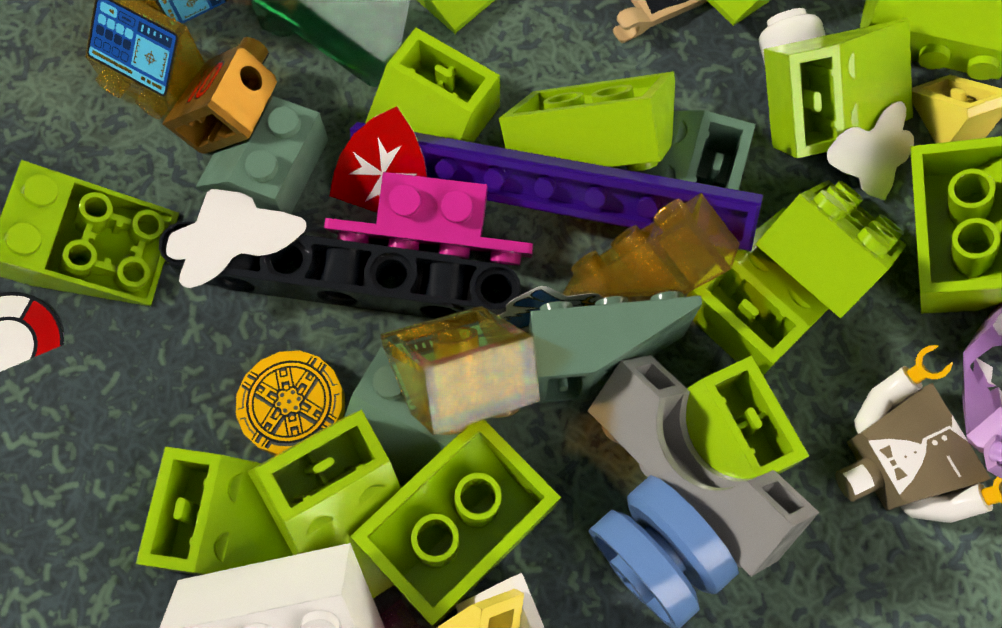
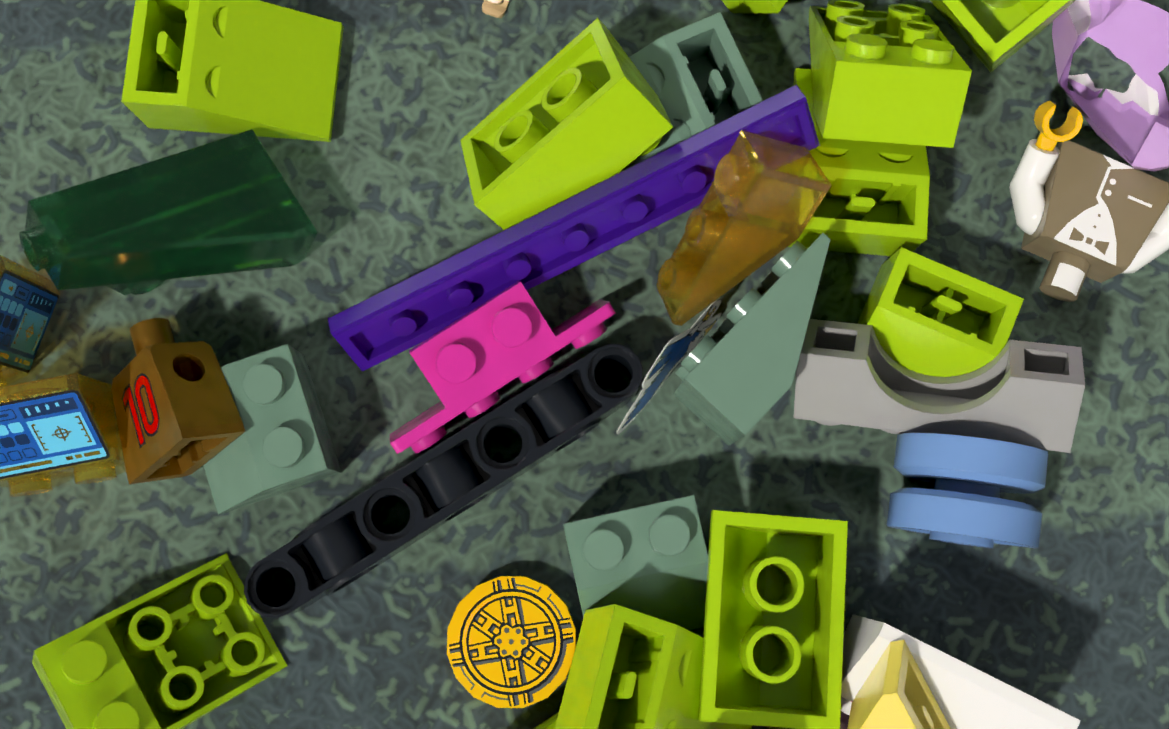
camera: 45 degrees left, 10 degrees up
(225, 229) = (306, 536): white sticker -> none
(377, 147) = (377, 341): red sticker -> none
(438, 89) = (377, 227): lime slope -> none
(463, 369) = (664, 483): clear yellow slope -> none

